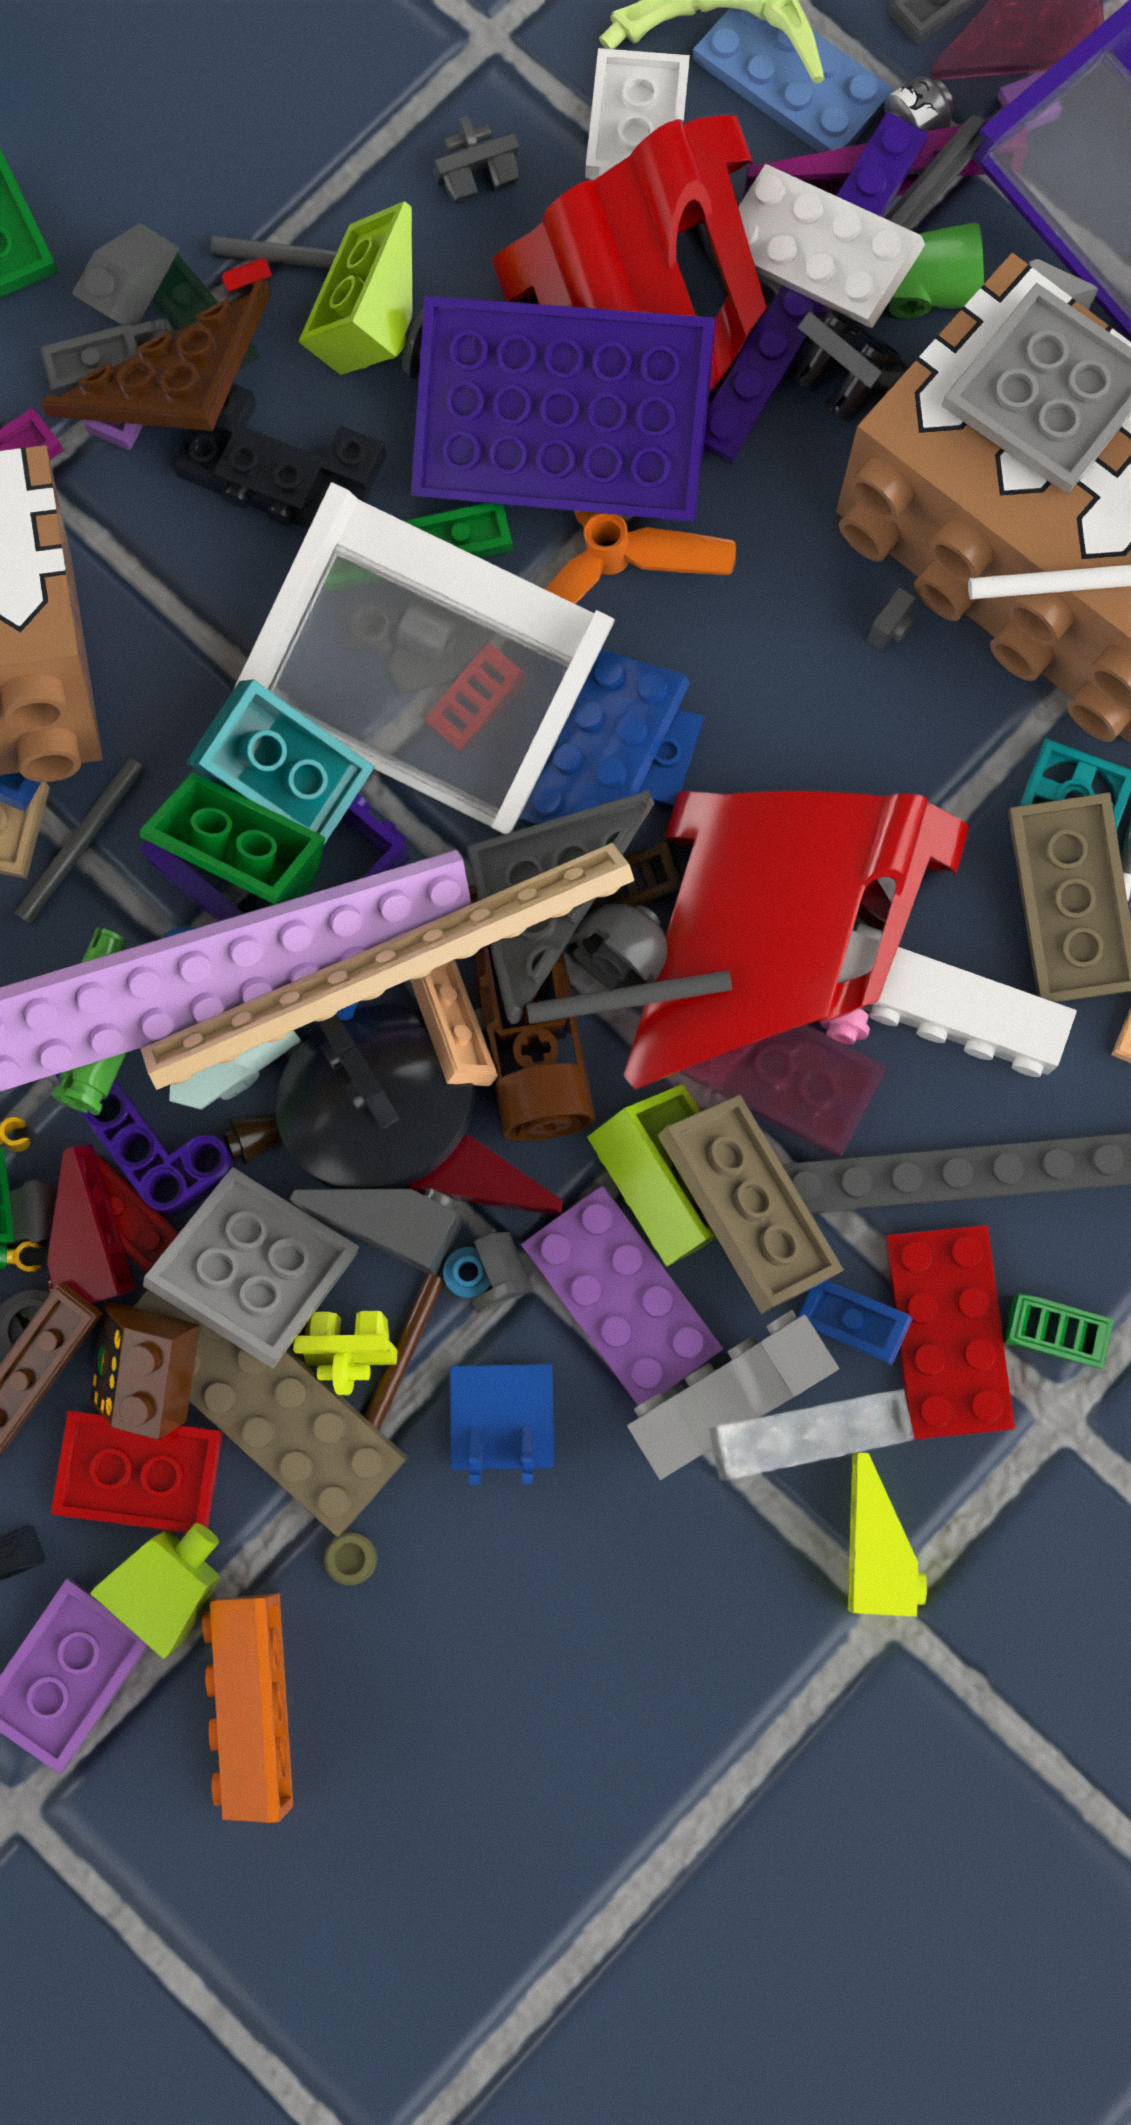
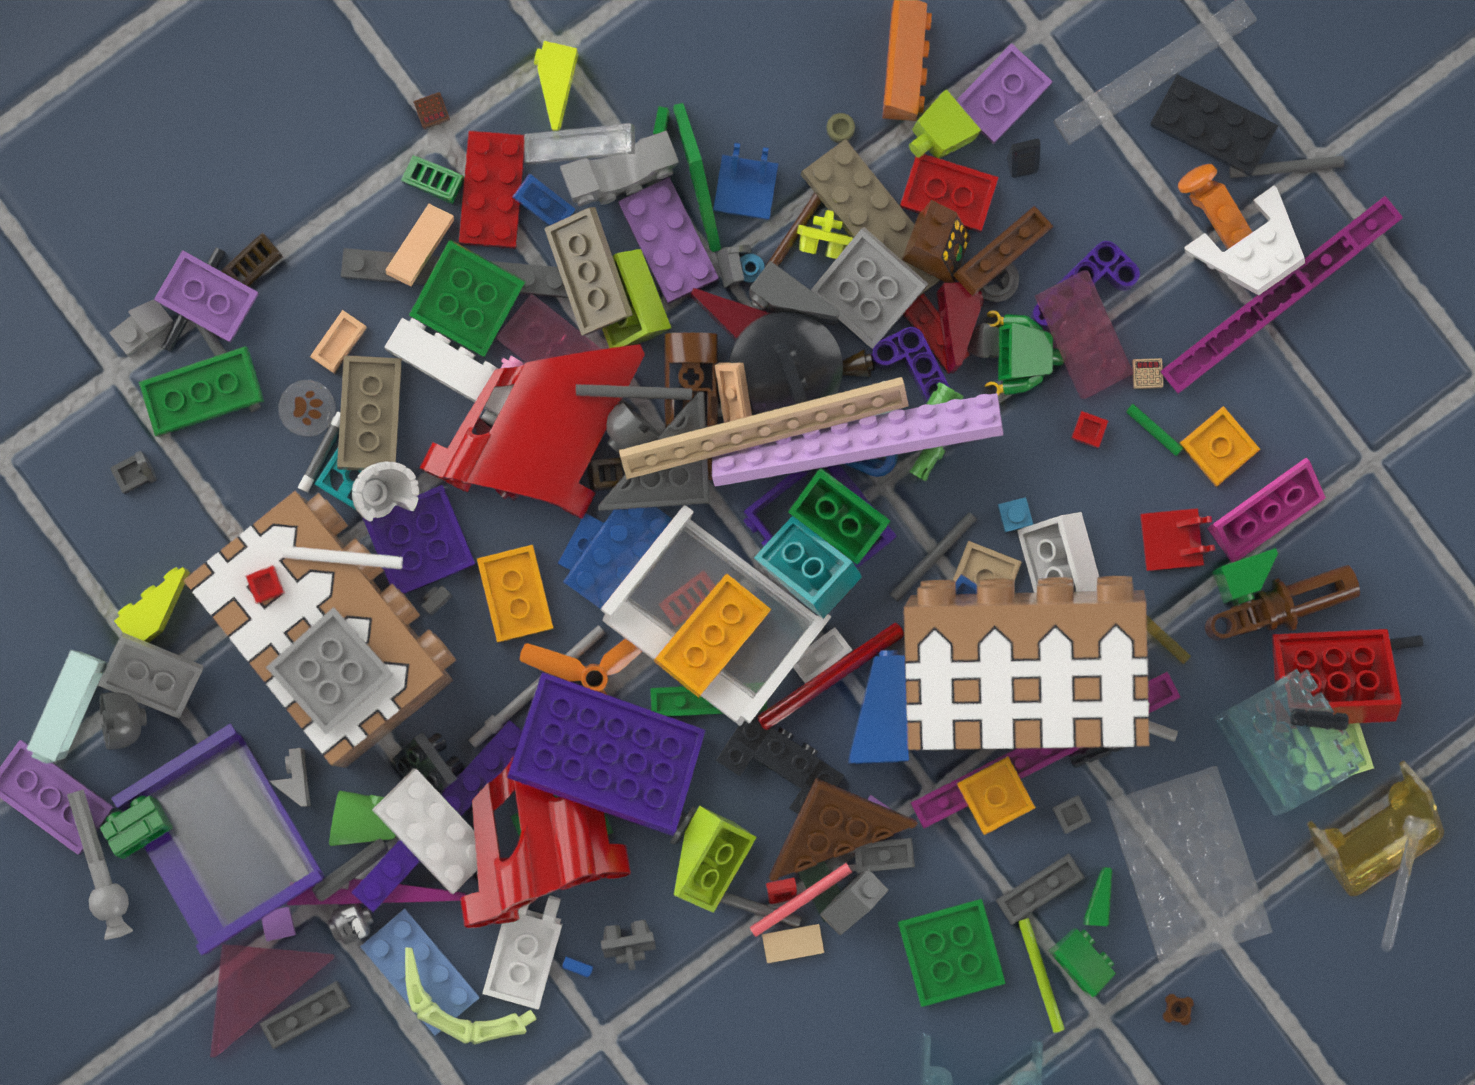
camera: 175 degrees left, 5 degrees up
(122, 553) = (882, 719): none -> blue slope
(212, 267) = (801, 899): none -> coral bar
(213, 618) = (830, 676): none -> red axle
(218, 212) = (793, 943): none -> tan tile
(229, 649) = (821, 655): none -> white plate
(422, 626) = (712, 635): none -> light orange plate
(548, 116) = (577, 966): none -> blue tile
(593, 1422) = (697, 176): none -> green tile
(673, 1503) = (662, 120): none -> green tile
(752, 453) = (494, 724): none -> light grey bar
(764, 655) = (515, 593): none -> light orange plate
(942, 710) = (426, 540): none -> dark purple plate
(952, 1124) = (467, 298): none -> green plate
(1031, 761) = (383, 487): none -> white hair
(1055, 1203) = (419, 245): none -> light nougat tile
(1088, 1456) = (431, 110): none -> tile

